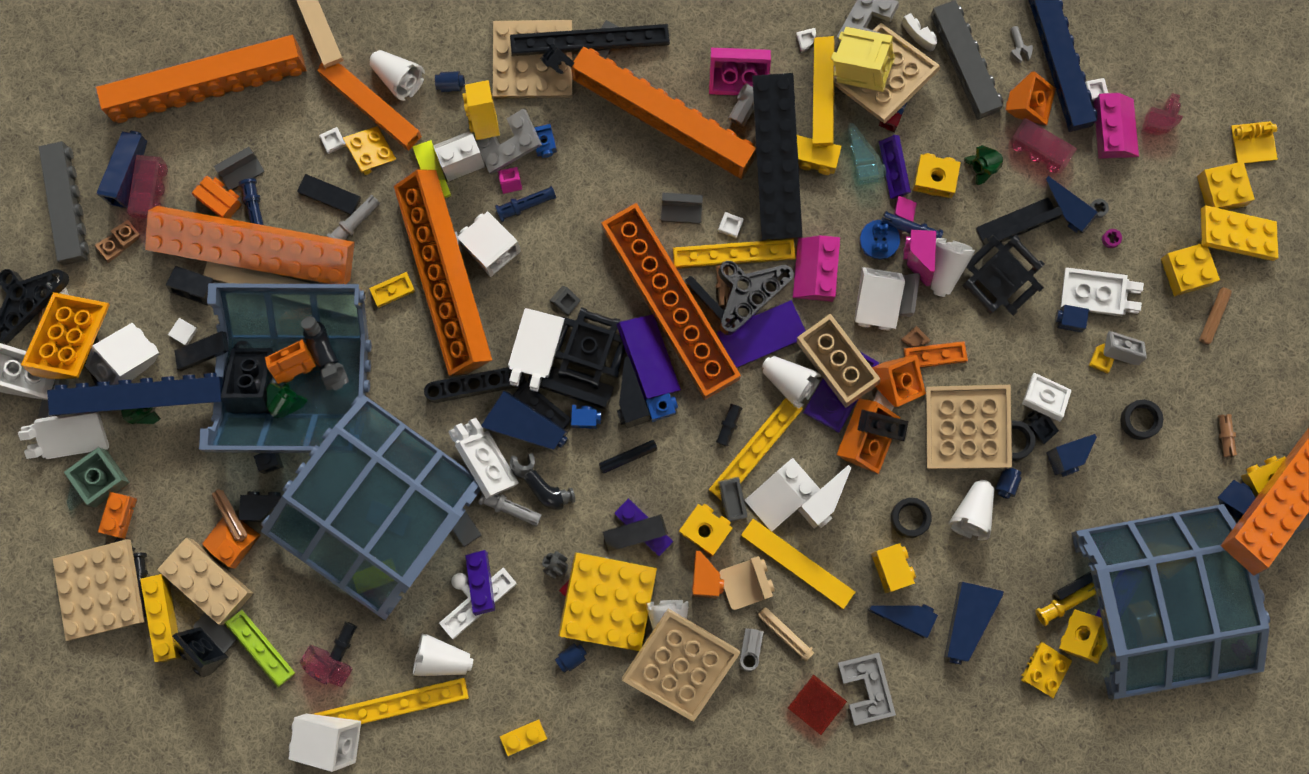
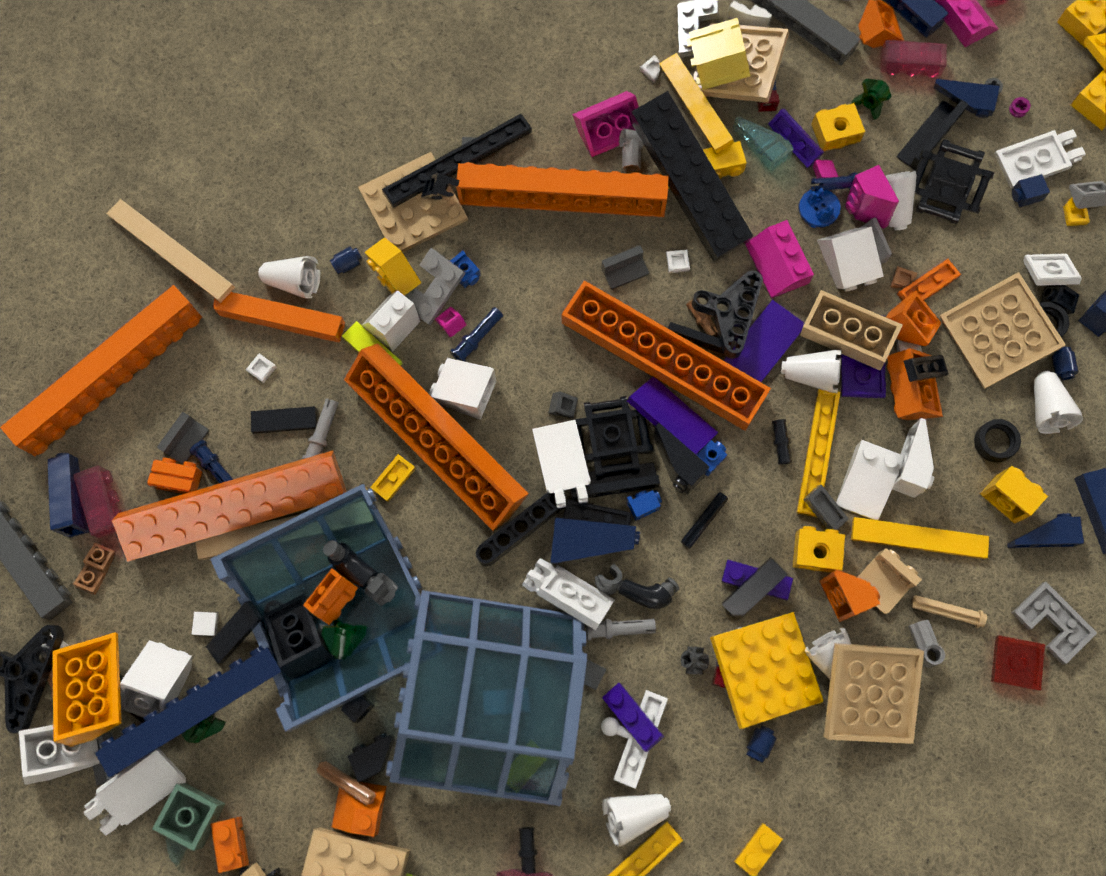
camera: 25 degrees left, 5 degrees down
(189, 285) = (190, 574): black hinge -> none
(369, 149) = (301, 359): yellow hinge -> none
(737, 252) = (701, 280): yellow tile -> none

